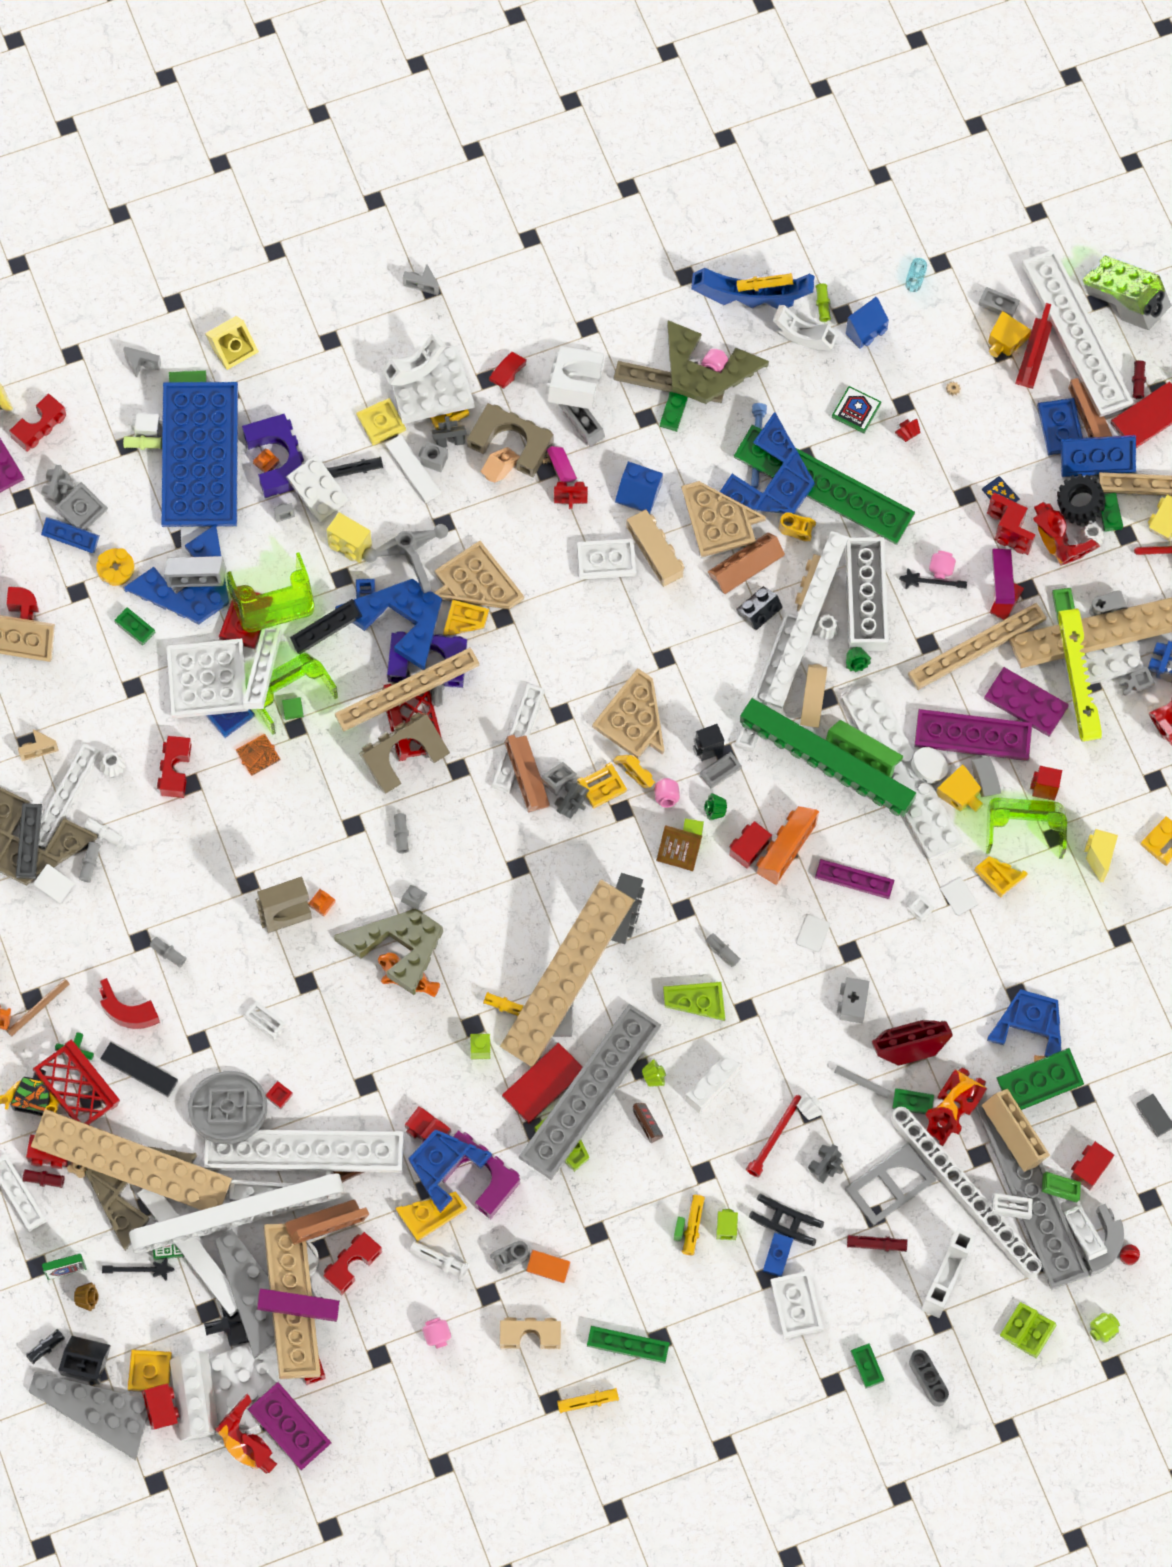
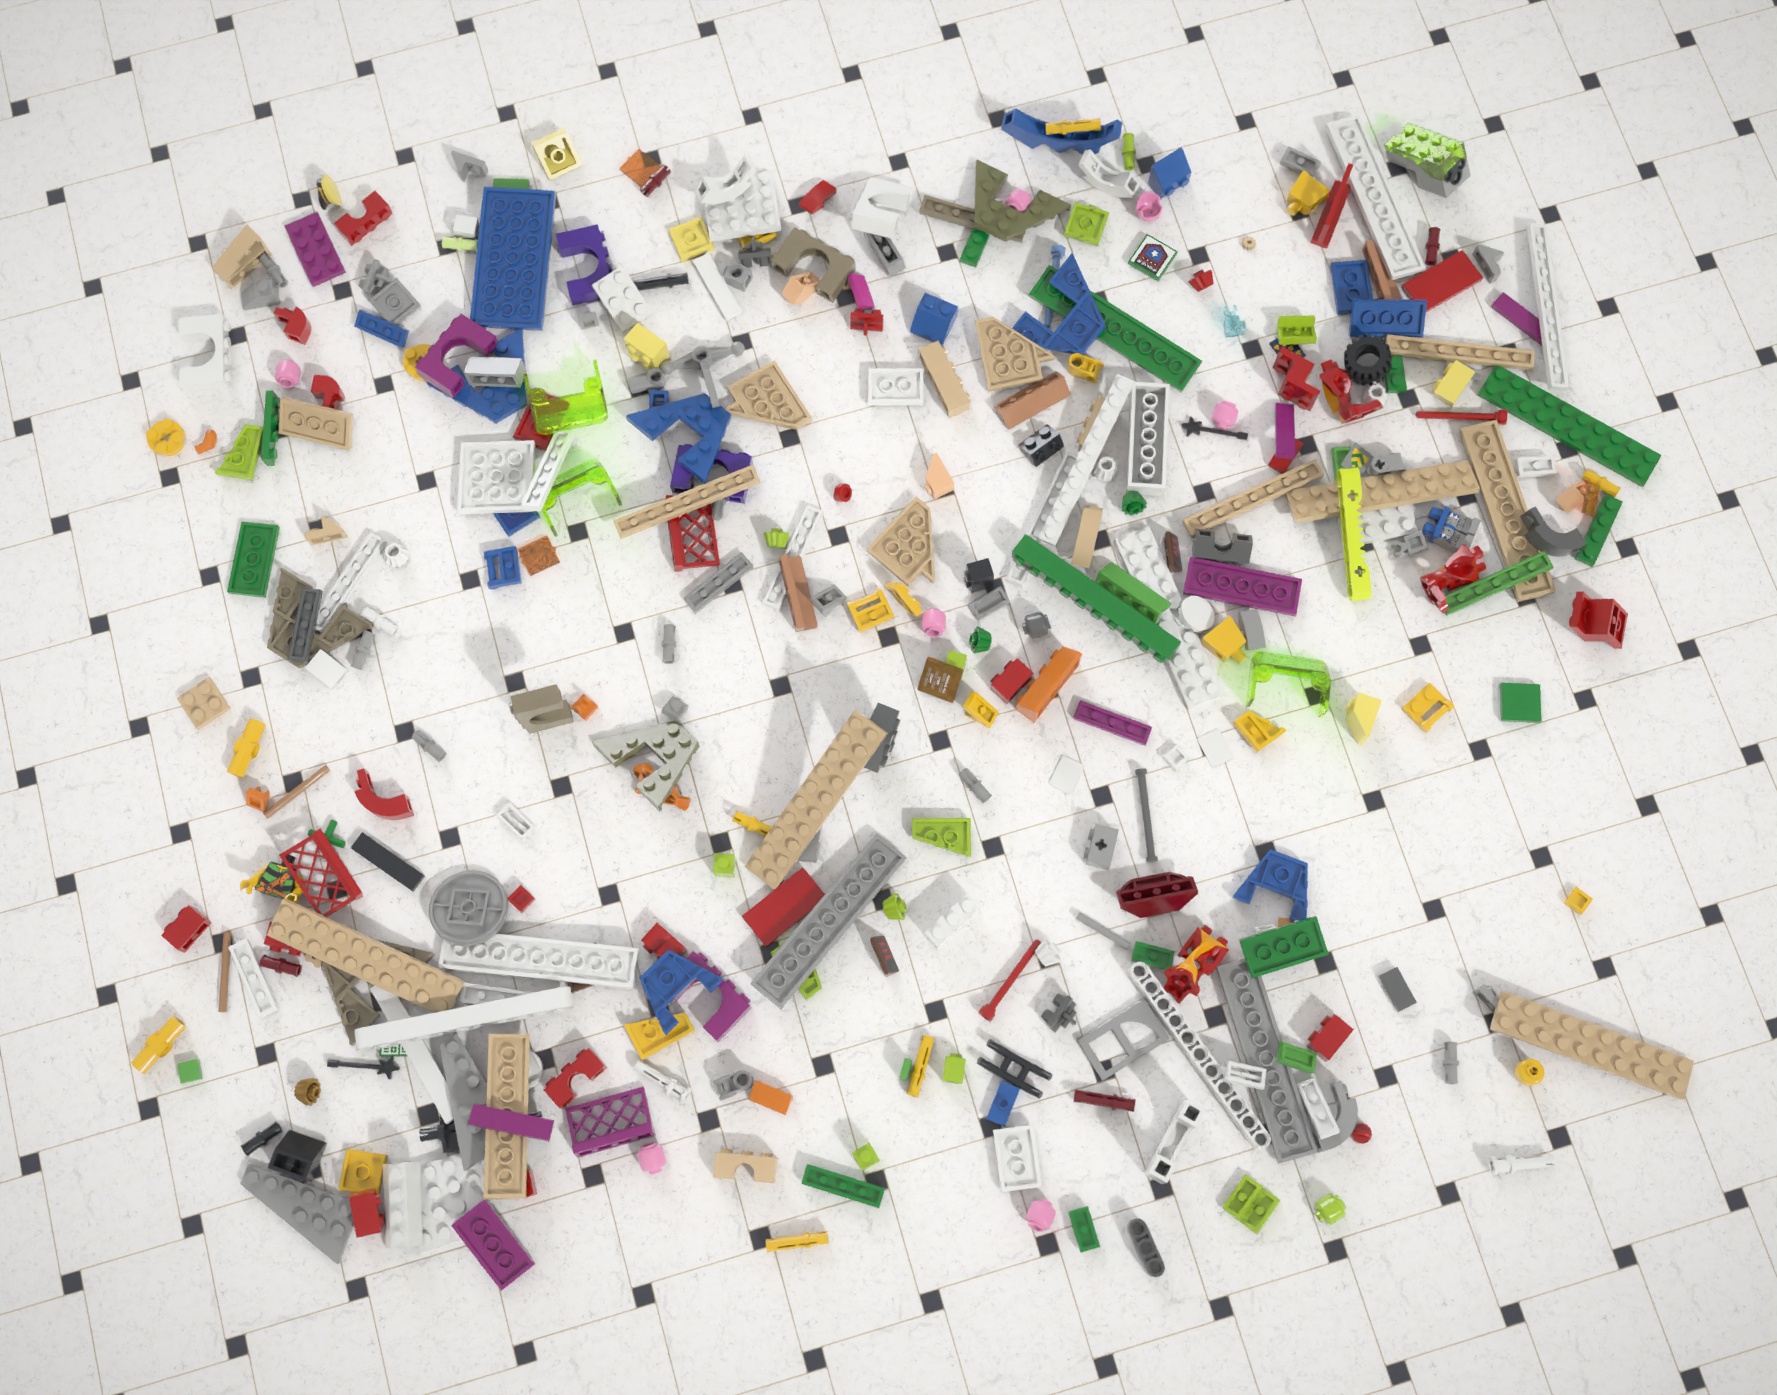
camera: 10 degrees right, 5 degrees up
(64, 1266) = (287, 1059): tile -> none
(134, 626) = (433, 421): green plate -> none
(156, 533) = (460, 333): none -> magenta arch
(176, 750) = (457, 546): red arch -> none
(229, 767) = (508, 565): none -> blue plate
(244, 1447) = (442, 1262): red hips -> none
(266, 461) = (577, 269): orange tile -> none
(292, 708) = (576, 512): bright green tile -> none
(320, 351) = (639, 167): none -> clear orange piece
(325, 1221) = (551, 1034): nougat panel -> none
(326, 626) = (615, 434): black tile -> none
(338, 363) = (655, 180): none -> dark red pin
(348, 570) = (645, 381): none -> light grey piece
(377, 754) = (651, 564): dark tan arch -> none
(400, 1316) = (615, 1138): none -> magenta fence
(424, 283) = (743, 108): light grey slope -> none
(444, 769) = (718, 582): none -> light grey tile
(465, 618) = (752, 435): yellow wing -> none
(500, 720) = (776, 538): none -> lime piece
(562, 669) = (842, 492): none -> red tile
(573, 800) = (840, 623): dark grey hips -> none
(648, 1314) = (866, 1156): none -> lime brick
(658, 649) = (938, 479): none -> light nougat slope
(721, 875) = (980, 710): none -> yellow slope
(770, 787) = (1036, 625): none -> dark grey head
(786, 379) = (1086, 224): none -> lime plate
(824, 1356) = (1040, 1215): none -> bright pink head
(848, 358) = (1148, 206): none -> bright pink hair
(900, 706) = (1172, 552): none -> reddish brown slope
(904, 1007) = (1146, 815): none -> dark grey bar
(913, 274) = (1223, 131): clear light blue beam -> none
(942, 471) = (1232, 323): none -> clear light blue piece
(964, 700) = (1236, 551): none -> dark grey arch
(1007, 474) = (1296, 329): none -> lime bracket
(1015, 1130) = (1255, 997): tan brick -> none
(1026, 701) = (1297, 556): magenta plate -> none
(1046, 782) = (1312, 640): red brick -> none
(1079, 599) = (1357, 458): none -> sticker

